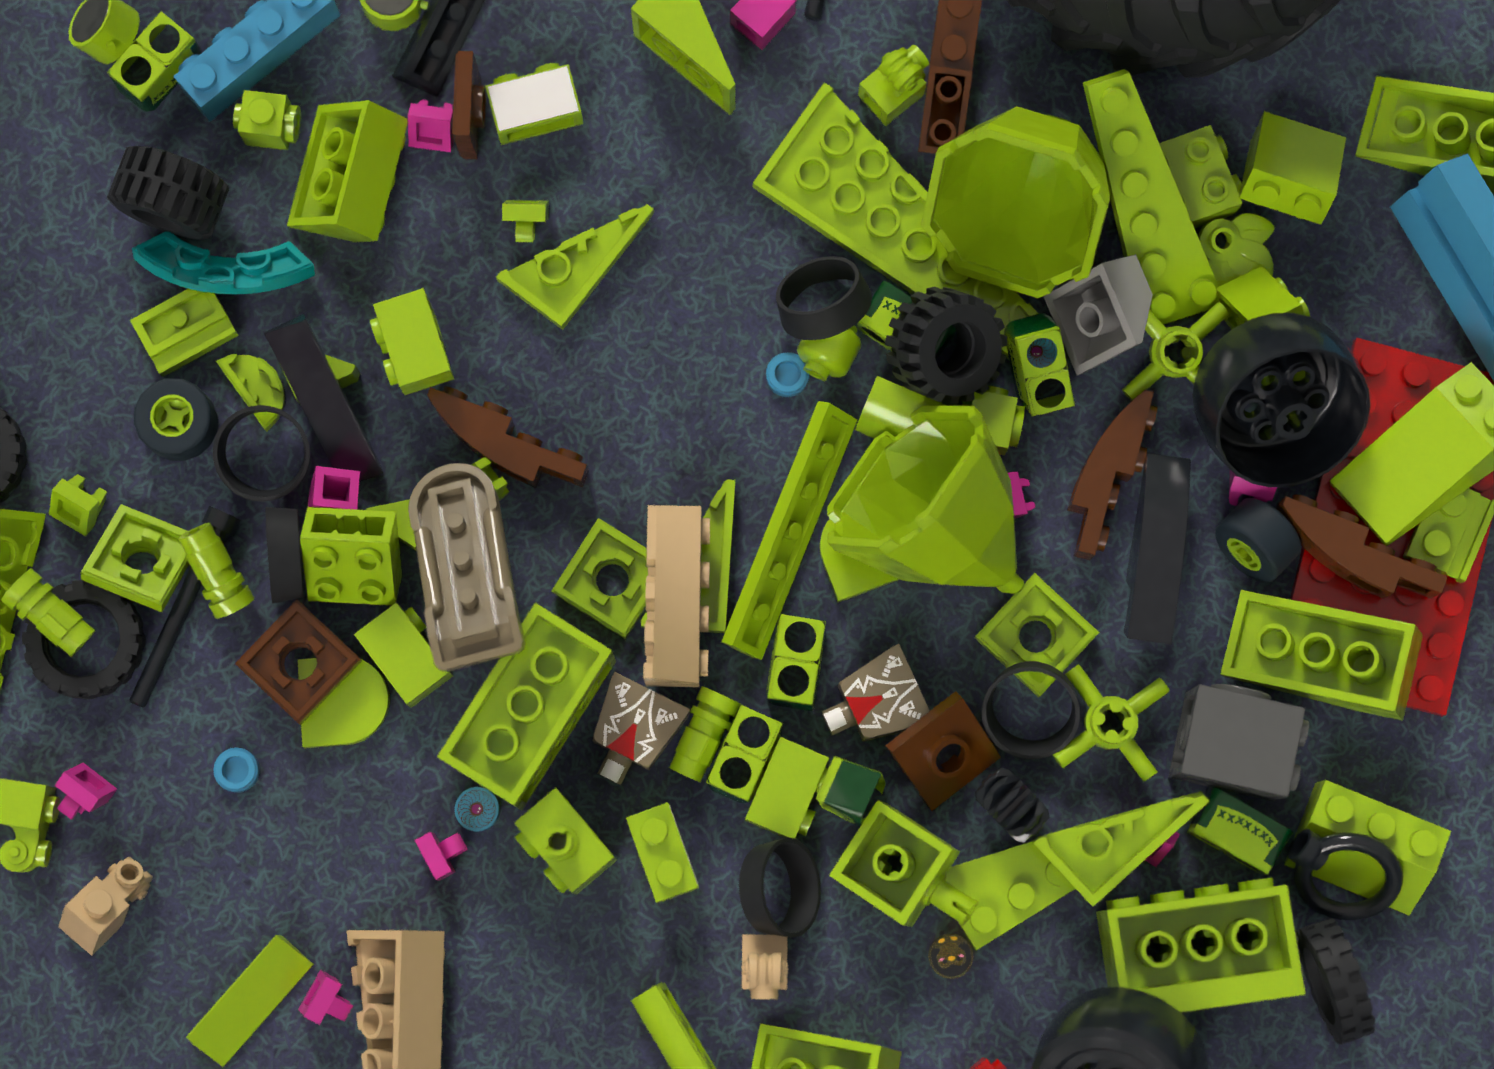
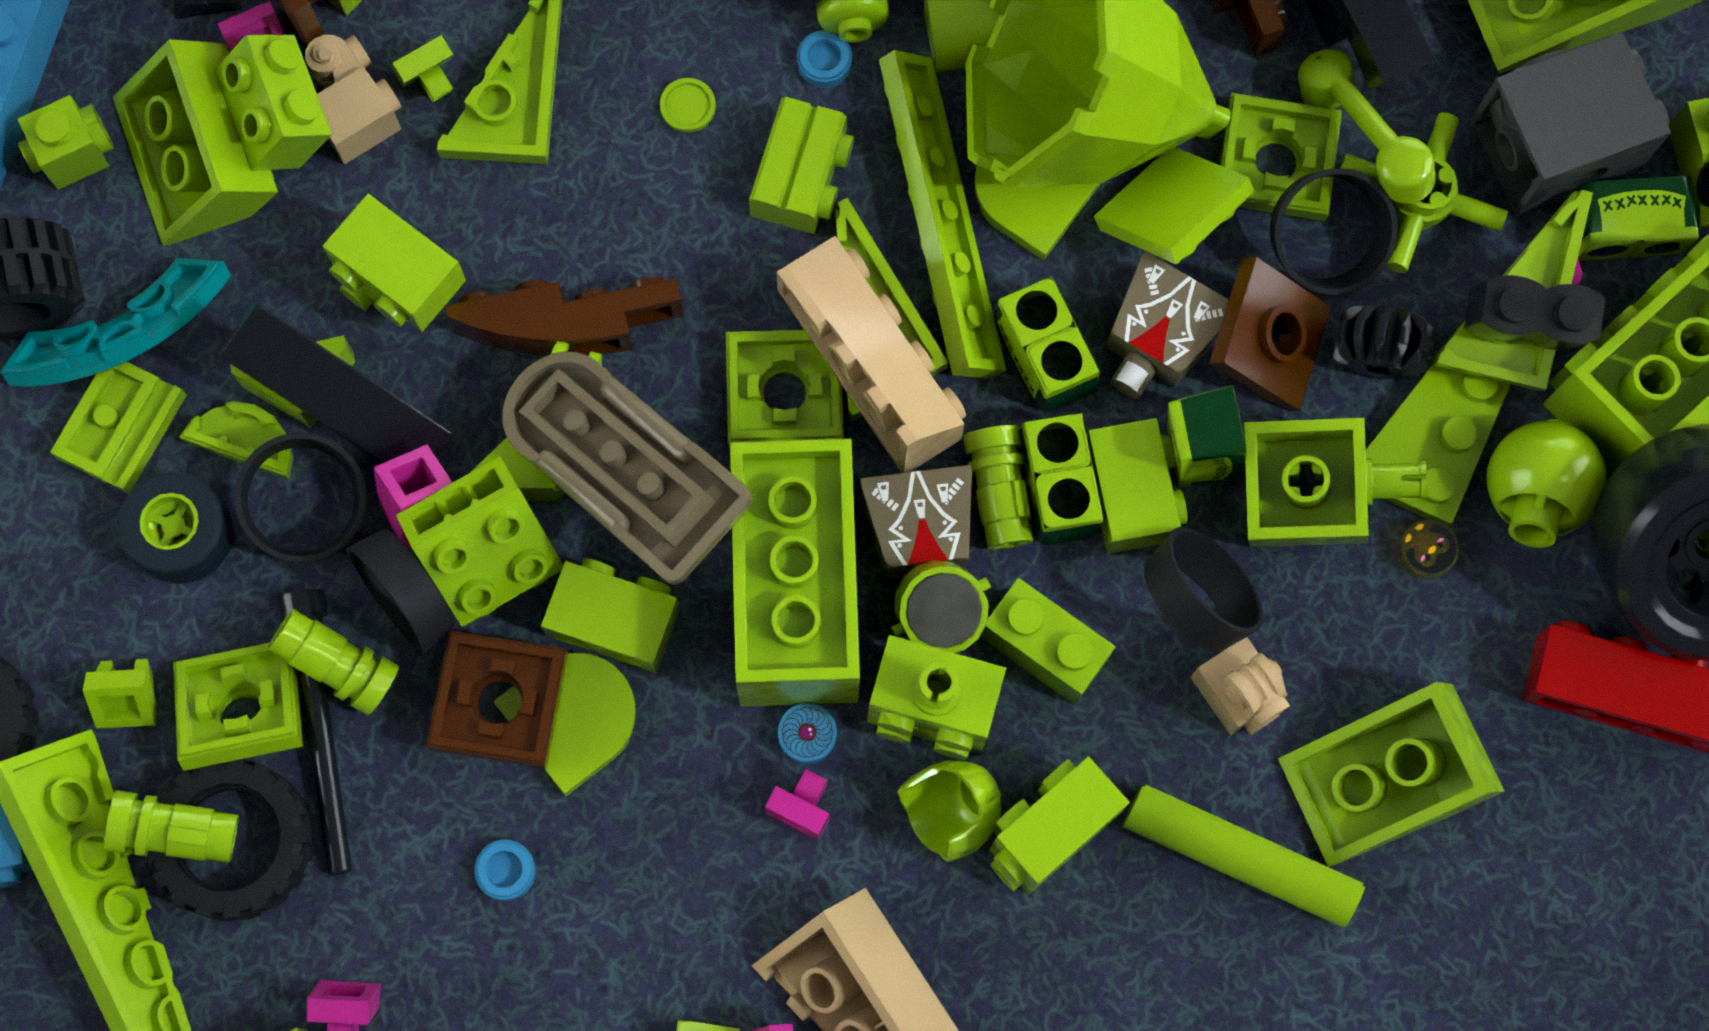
camera: 35 degrees left, 5 degrees down
(409, 181) = (272, 102): none -> lime brick
(464, 215) = (353, 104): none -> tan brick
(531, 918) = (952, 807): none -> lime hair
(582, 975) = (1043, 837): none -> lime brick
(606, 788) = (941, 606): none -> pearl dark grey piece
(679, 348) = (687, 105): none -> lime piece
(720, 439) = (800, 164): none -> lime brick
(940, 624) = (1174, 204): none -> lime tile
(1050, 964) = (1545, 481): none -> lime brick
(1102, 698) = (1403, 162): none -> lime piece
(1121, 863) = (1547, 318): none -> black brick

